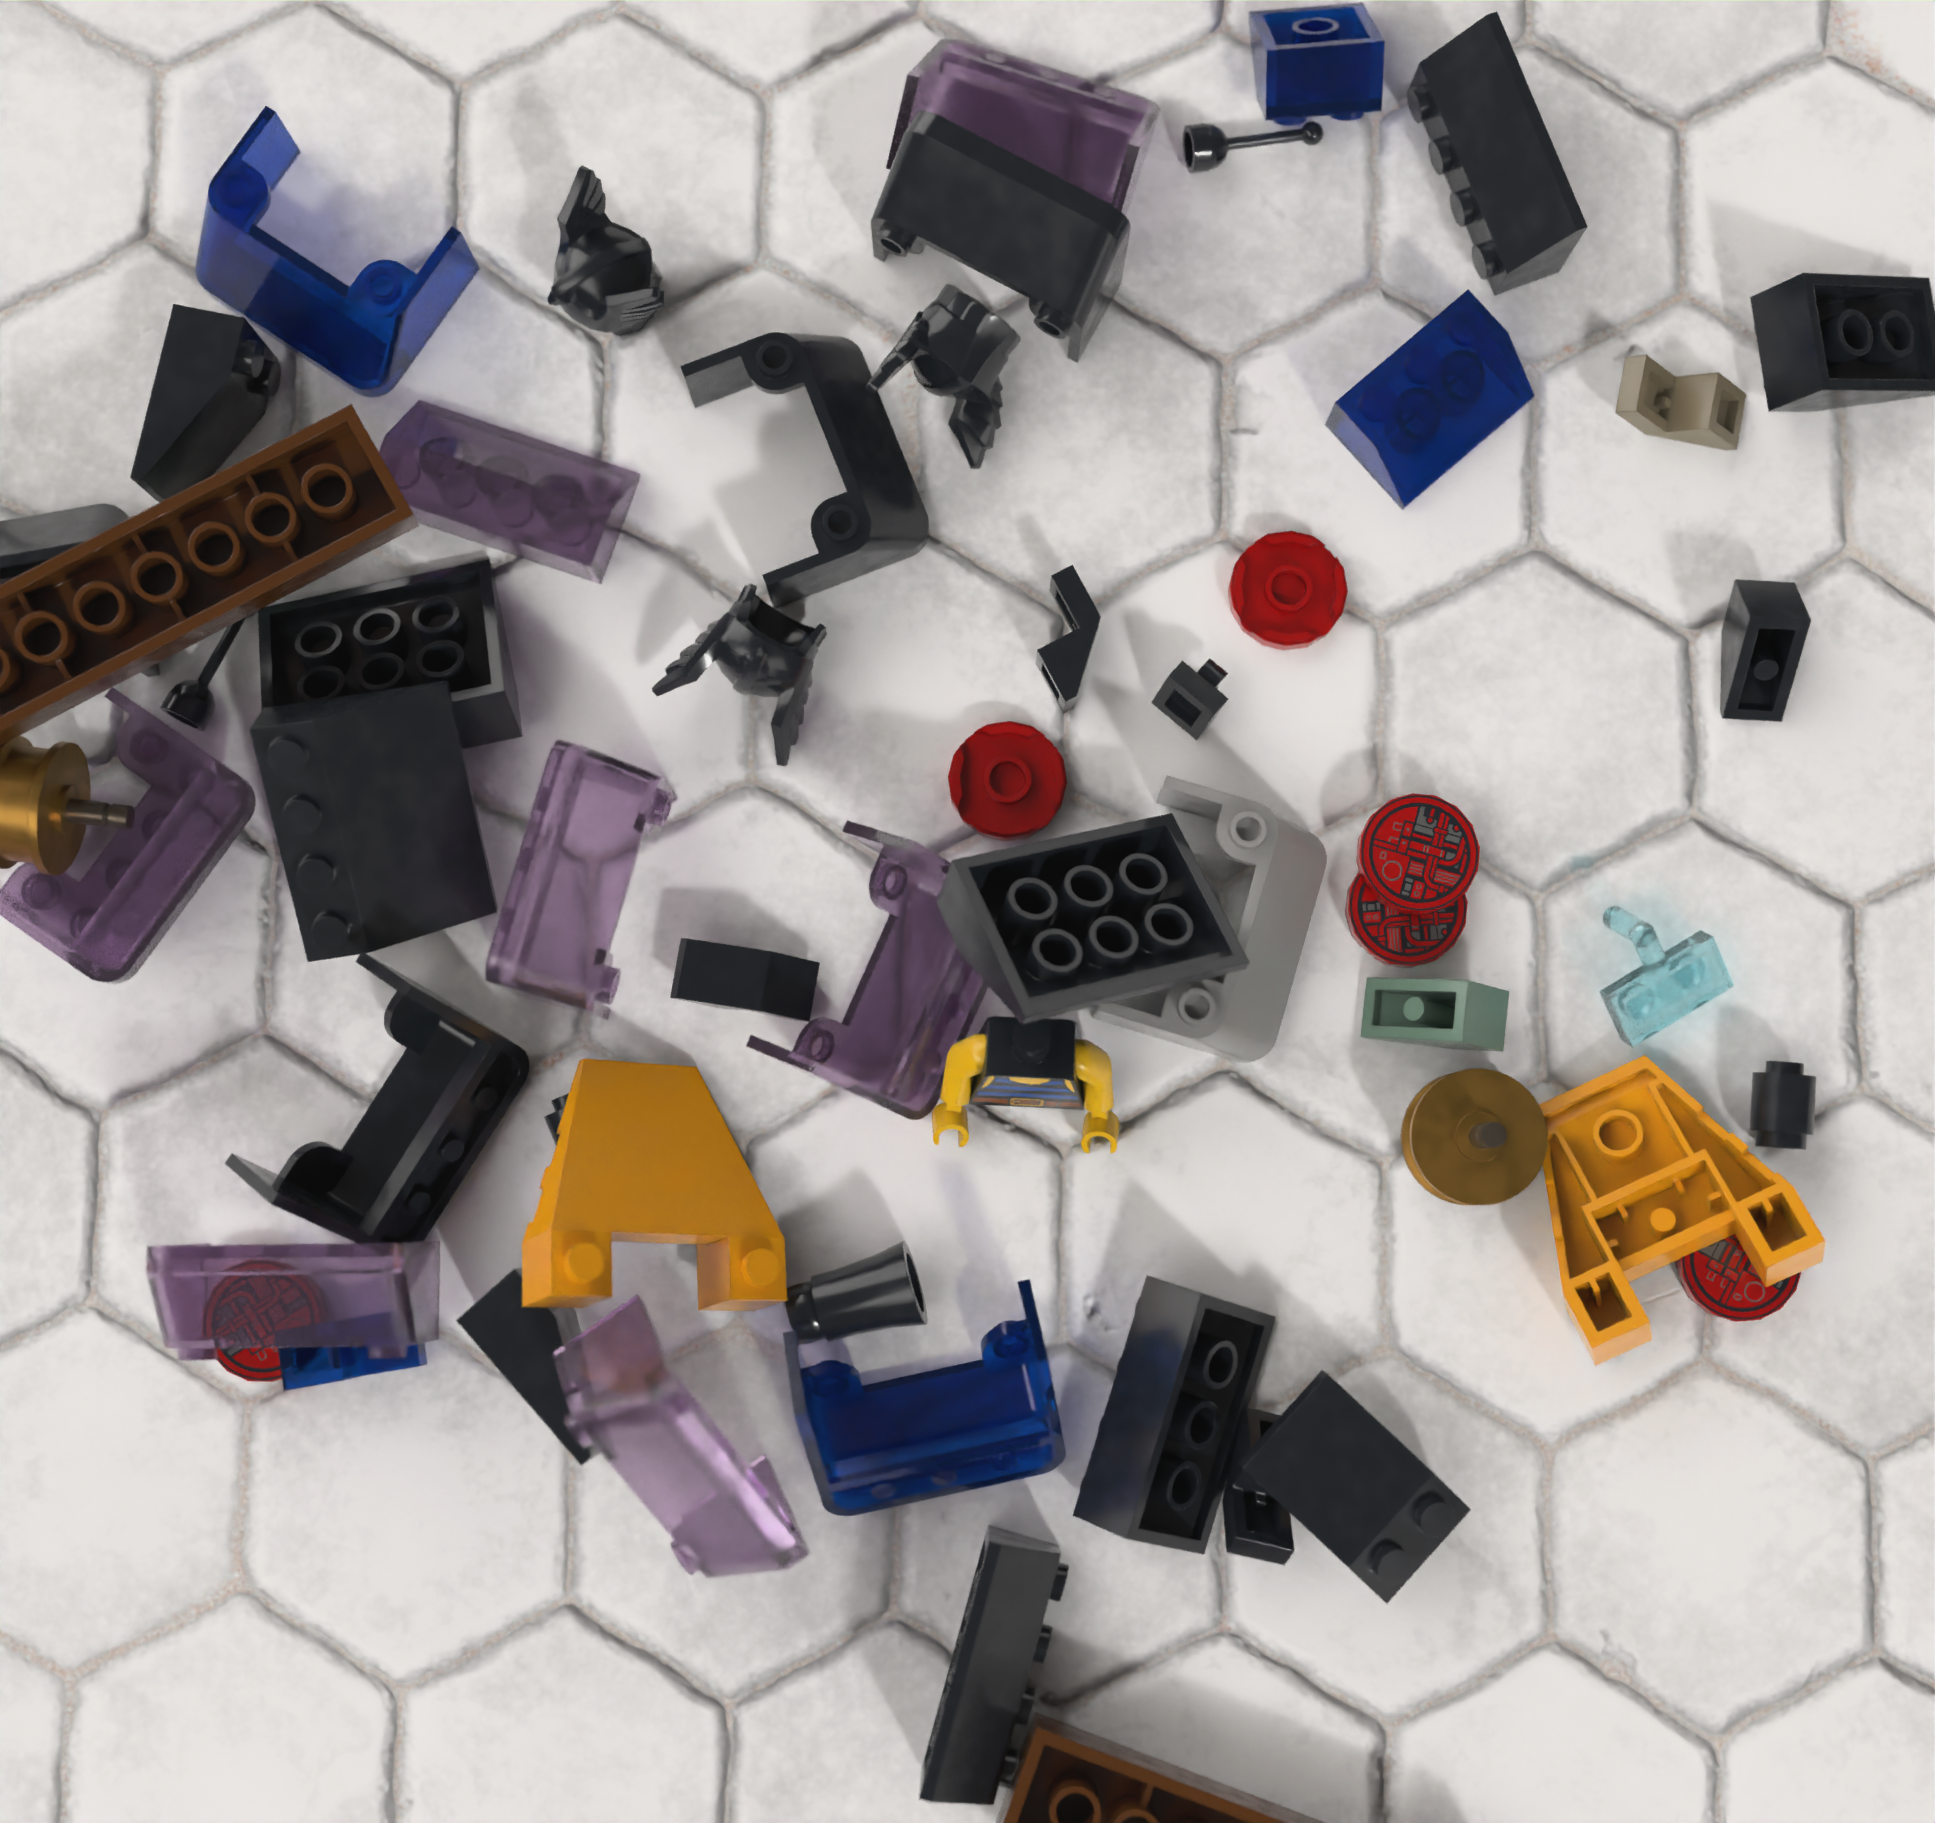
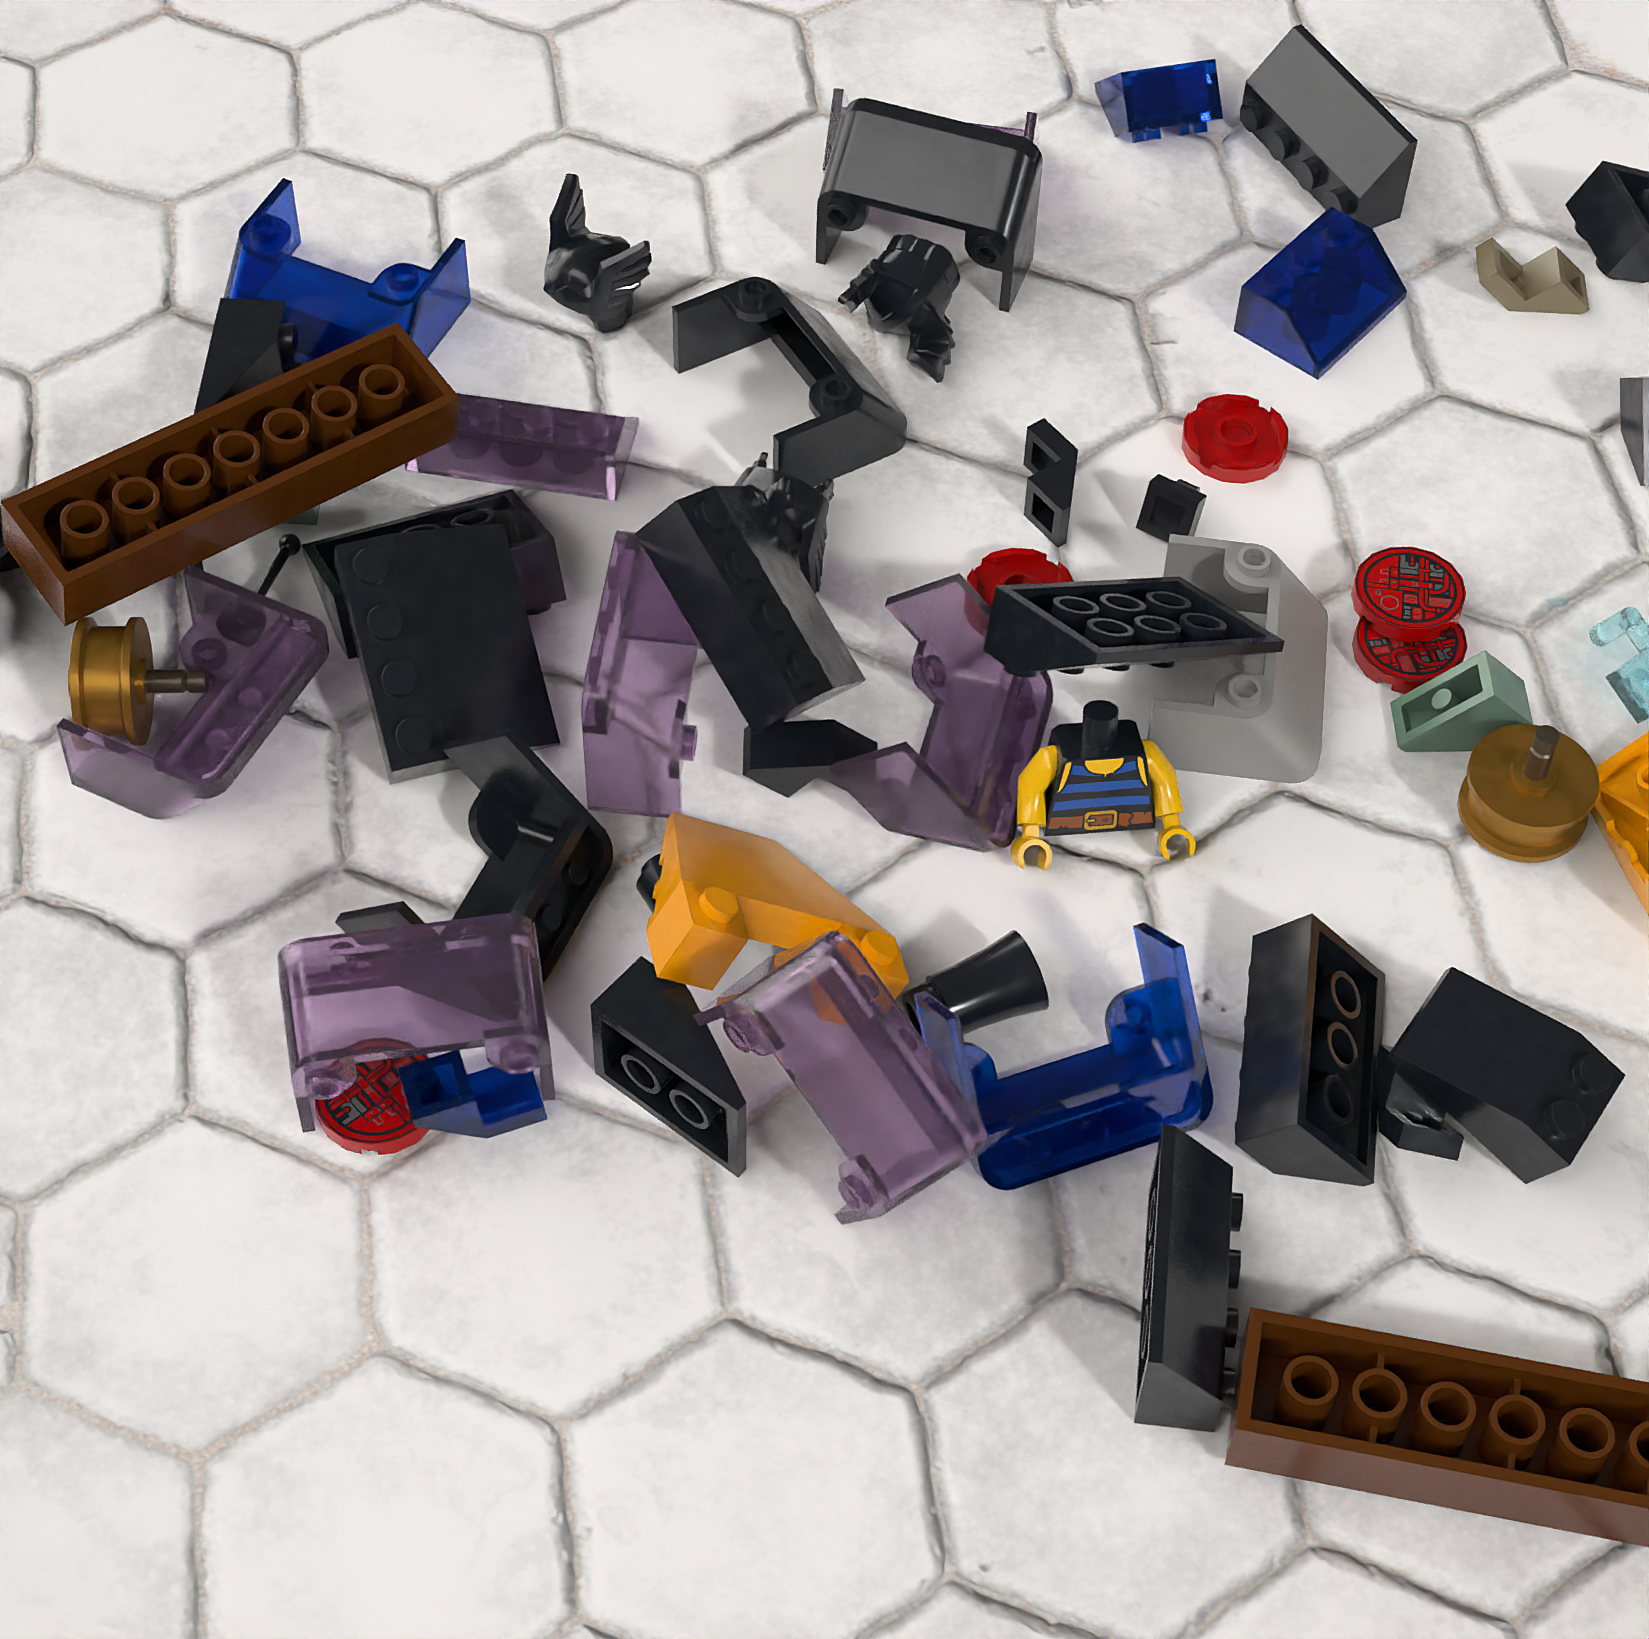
camera: 10 degrees left, 30 degrees down
(701, 823) = (749, 604): none -> black slope
(1207, 145) = (1083, 160): black hinge -> none

